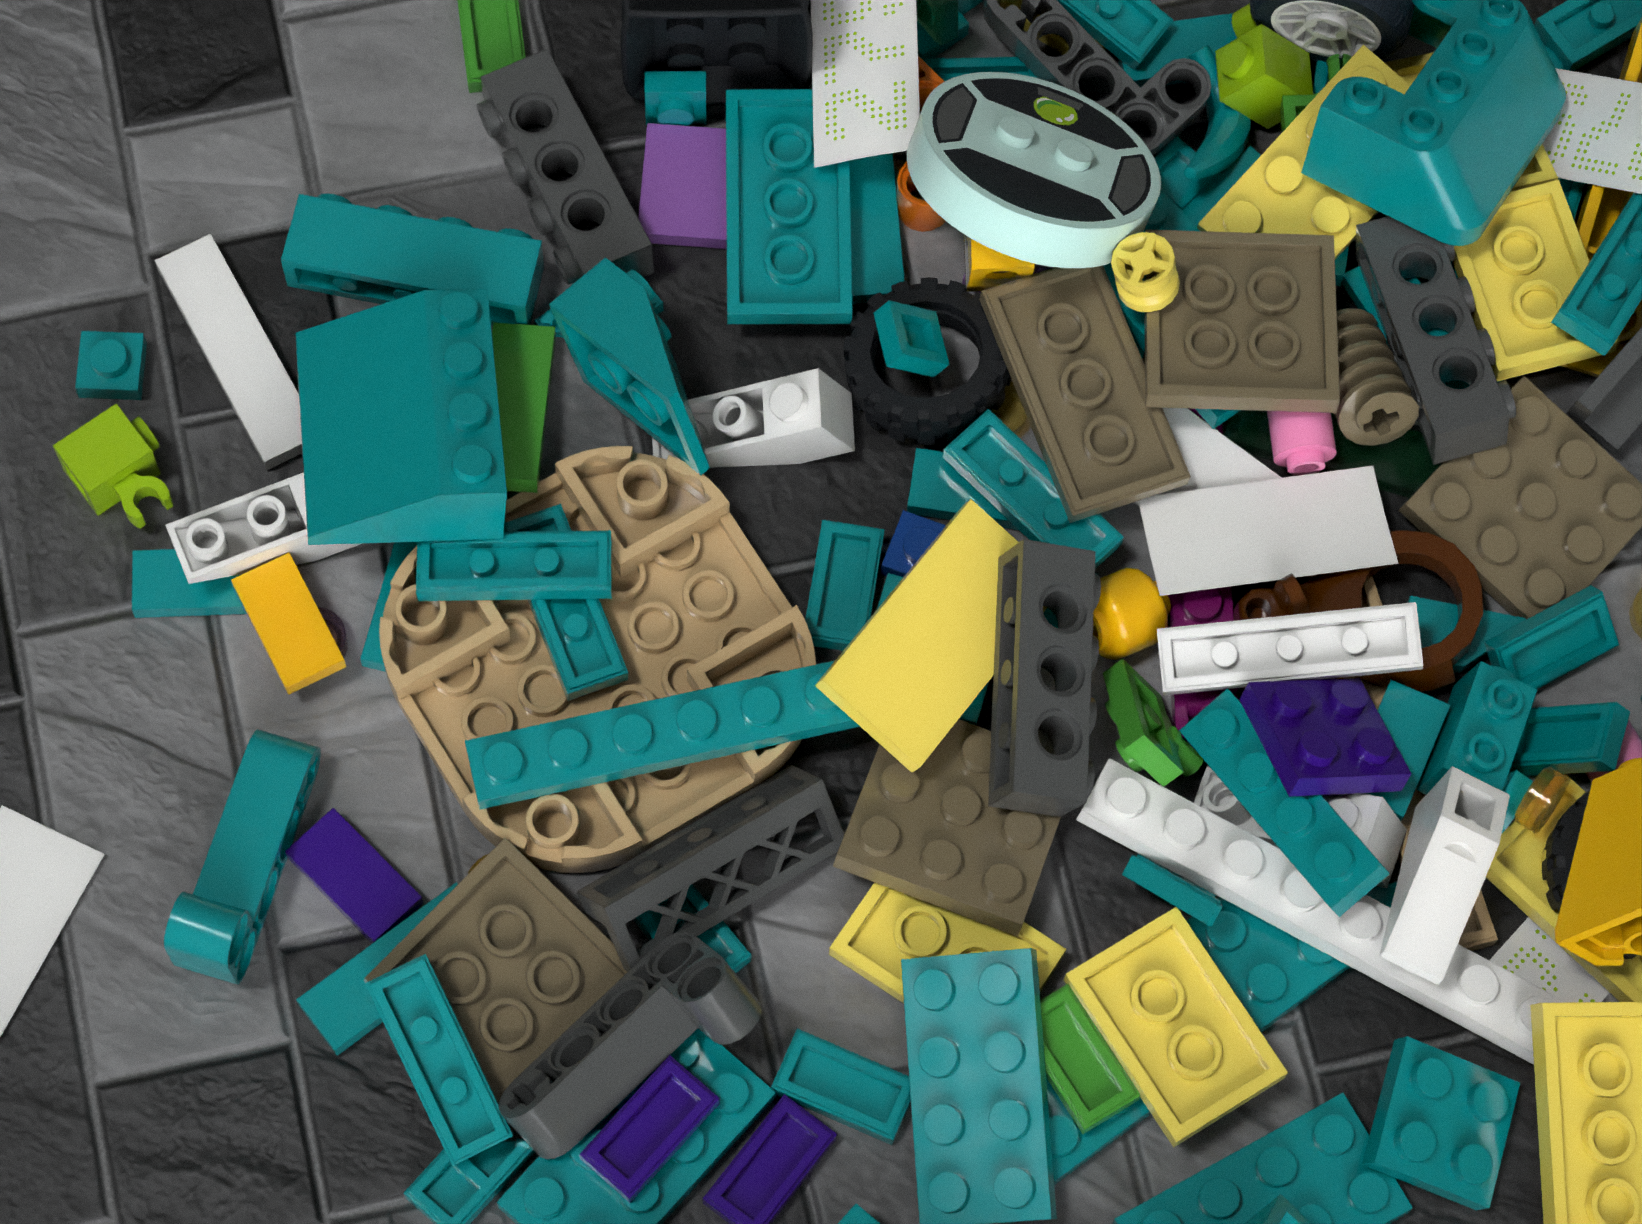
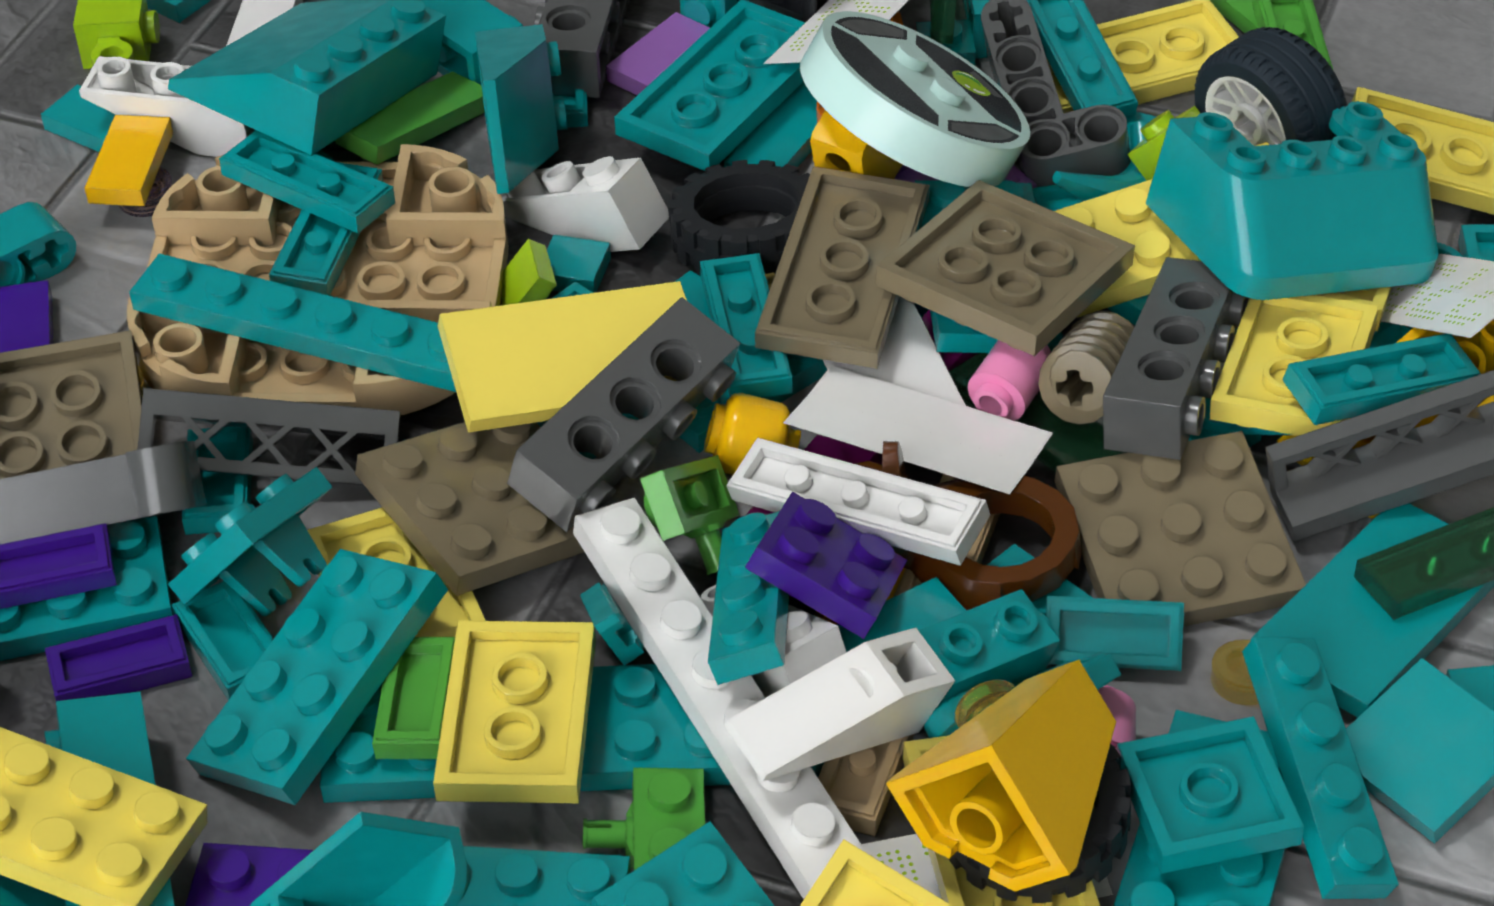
camera: 40 degrees right, 25 degrees down
(788, 549) = (528, 275): none -> lime tile
(799, 497) = (578, 261): none -> teal tile
(821, 994) = (257, 544): none -> teal plate
(911, 339) = (736, 183): teal plate -> none
(1139, 256) = (943, 186): light yellow wheel -> none
(1339, 1047) = (662, 812): none -> bright green plate

